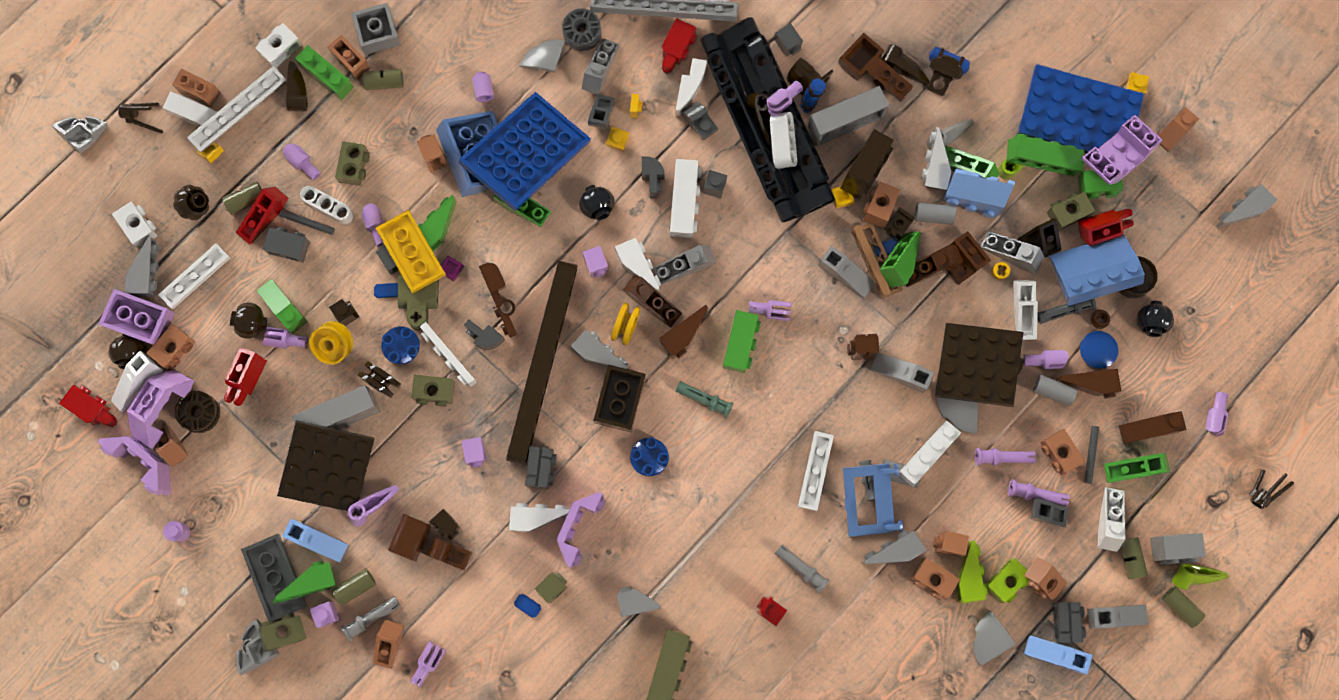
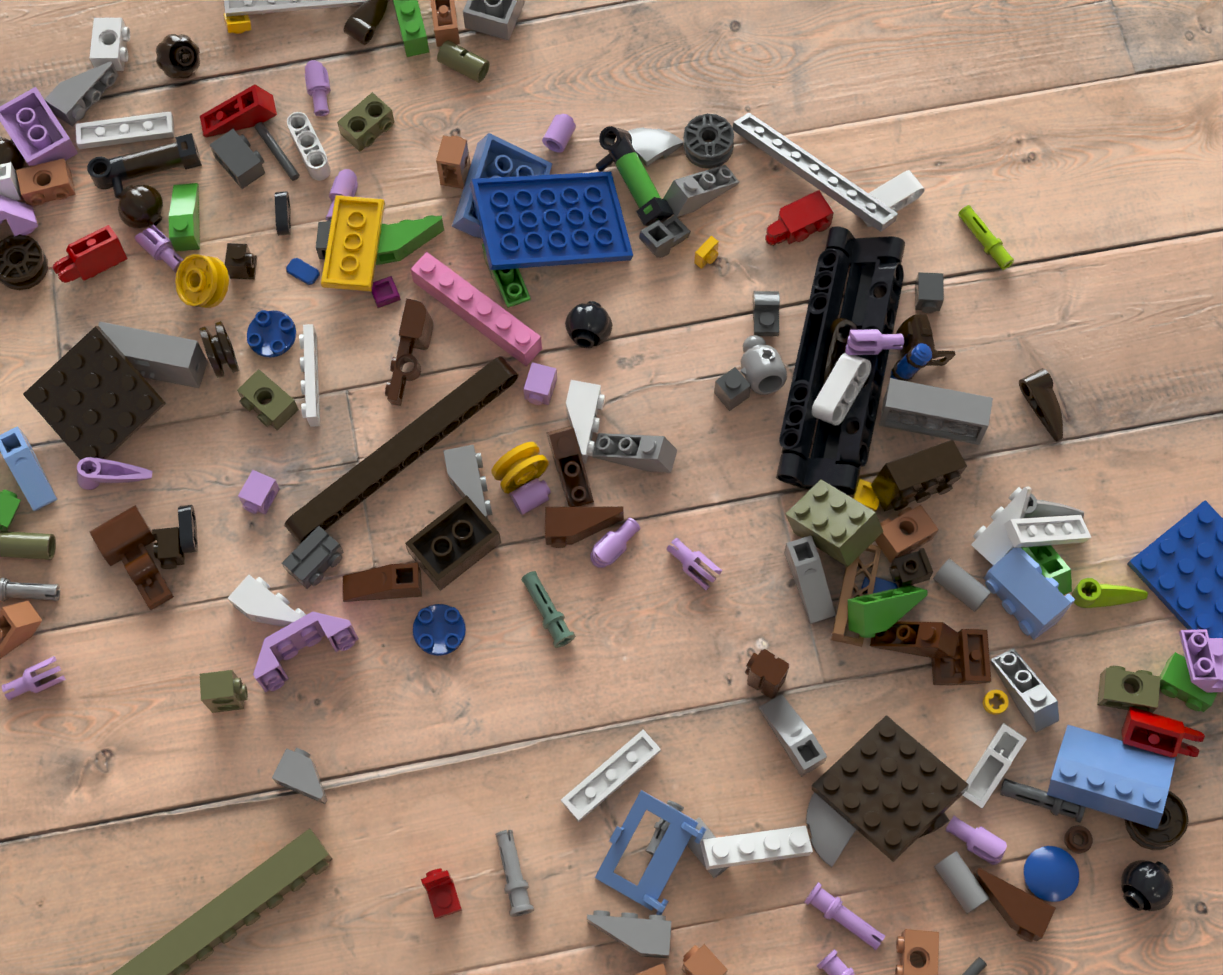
camera: 40 degrees right, 10 degrees down
(226, 289) = (144, 162): none -> piece
(239, 200) = (228, 85): olive pin -> none
(345, 261) = (282, 213): none -> black beam
(417, 303) = (324, 303): olive piece -> none
(447, 504) = (187, 529): none -> black beam
(486, 339) = (363, 385): dark grey brick -> none
(519, 240) = (476, 309): none -> bright pink brick
(527, 605) = (186, 696): blue piece -> none
(579, 98) = (634, 175): none -> piece
(595, 453) = (383, 582): none -> reddish brown slope
(617, 139) = (662, 275): yellow plate -> none
(642, 336) = (530, 495): none -> lavender brick
(652, 171) = (673, 334): dark grey brick -> none
(684, 198) = (686, 382): white brick -> none
(690, 85) = (783, 270): white slope -> none
(714, 331) = (613, 544): none -> lavender arm
(723, 157) = (762, 366): none -> light grey piece
(741, 341) = (633, 575): bright green brick -> none
(838, 226) = (835, 521): none -> olive brick
(864, 58) = (1004, 364): reddish brown plate -> none
(947, 66) = (1094, 434): dark brown piece -> none
(964, 147) = (1047, 531): none -> white plate
(1044, 236) = (1075, 698): dark brown slope -> none
(1045, 155) = (1139, 603): bright green brick -> none

